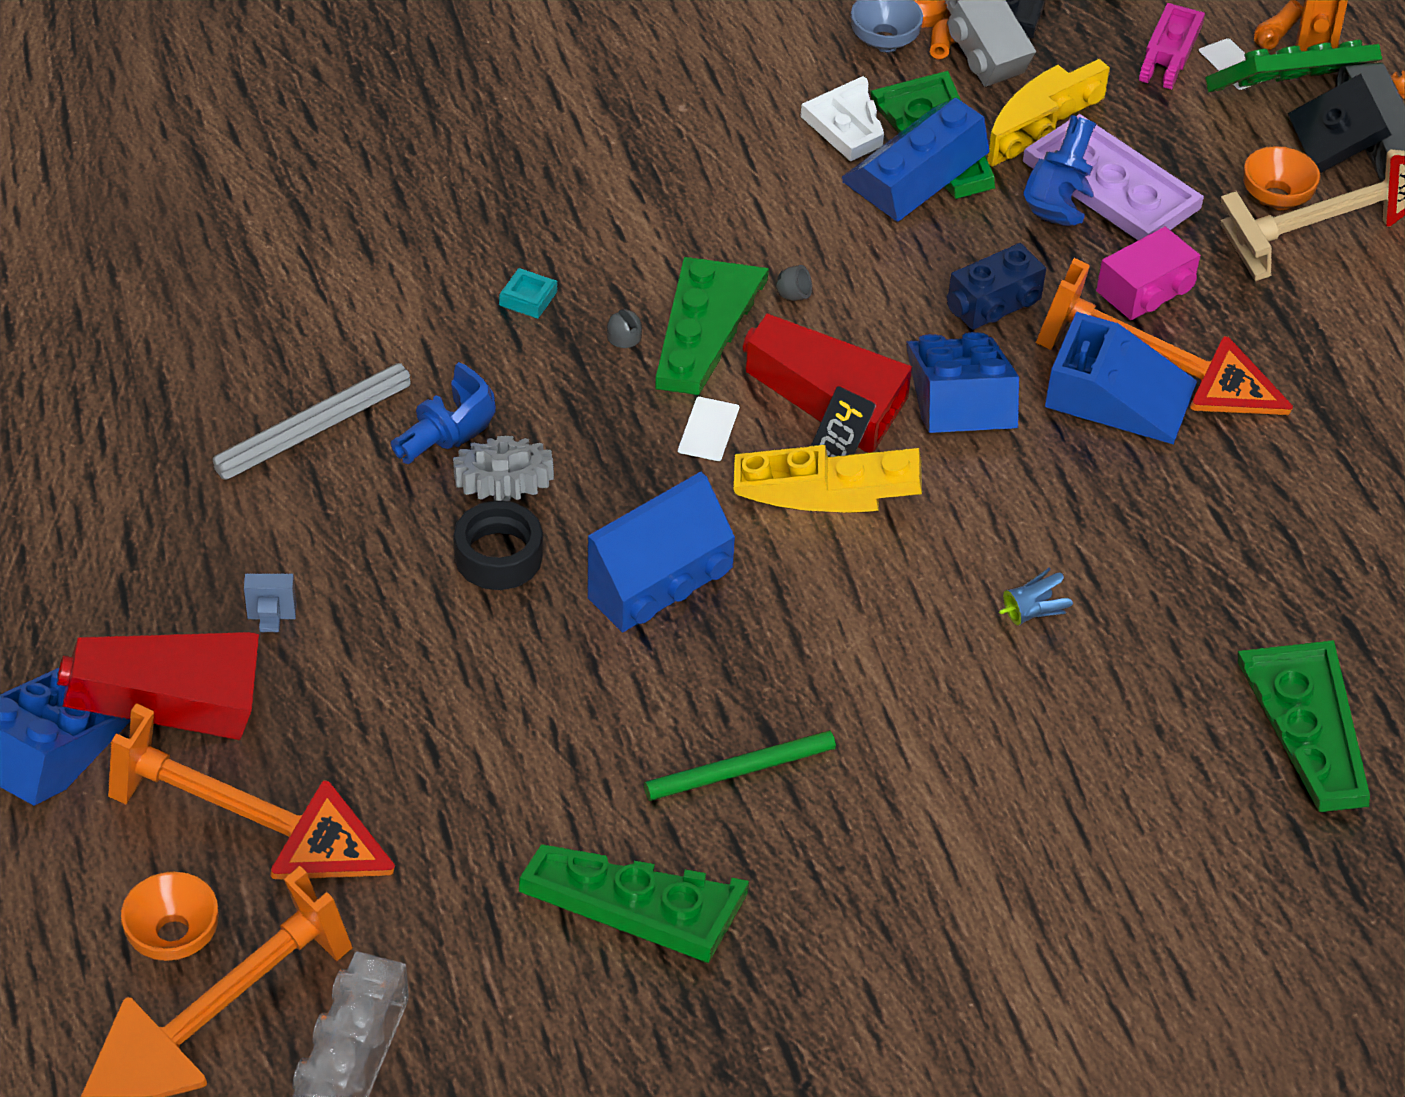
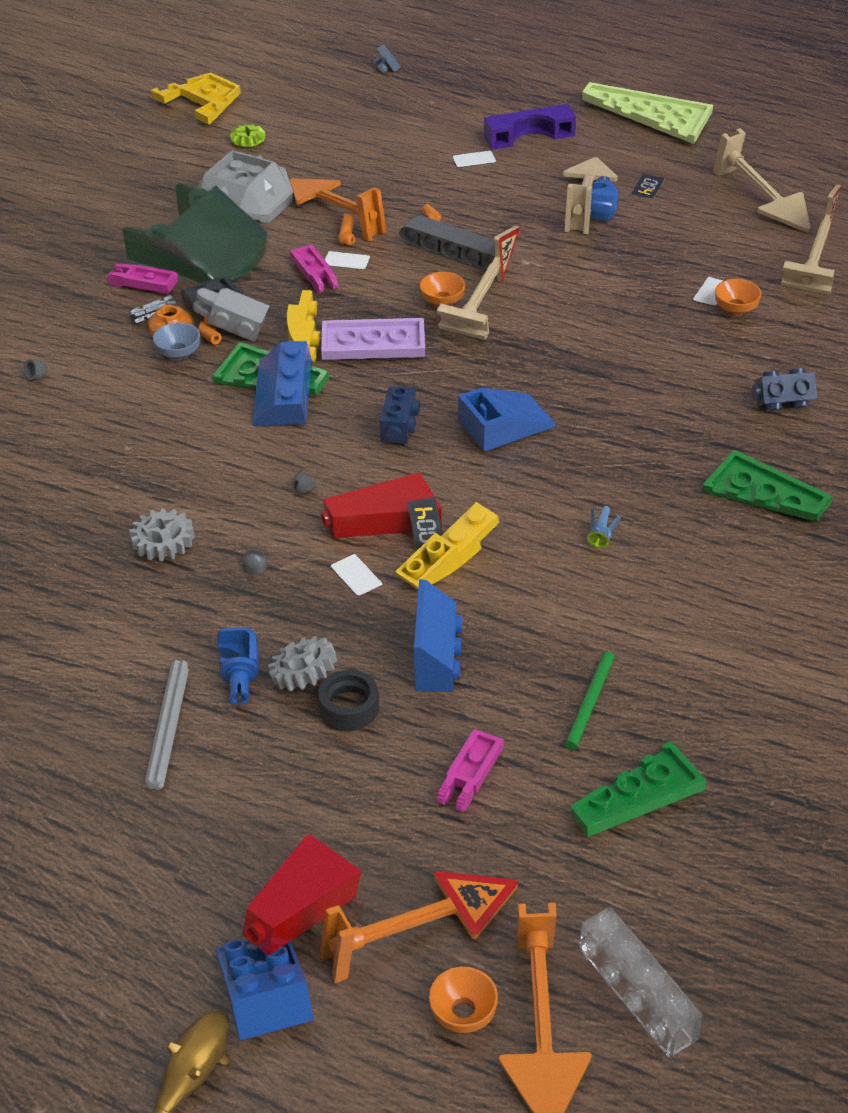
camera: 45 degrees left, 5 degrees down
(270, 599) = (280, 818): sand blue tile -> none
(509, 719) = (470, 768): none -> dark pink hinge
(528, 293) = (183, 582): teal tile -> none
(570, 224) = (162, 534): none -> light grey gear
(703, 319) = (285, 529): green wing -> none
(846, 119) = (220, 396): white wing -> none
(963, 383) = (444, 464): blue slope -> none
(1061, 174) = (358, 346): blue piece -> none
(1148, 273) = (451, 363): dark pink brick -> none
(1227, 382) = (543, 386): orange piece -> none
(1293, 63) = (381, 240): green wing -> none
(1339, 123) = (434, 249): black plate -> none

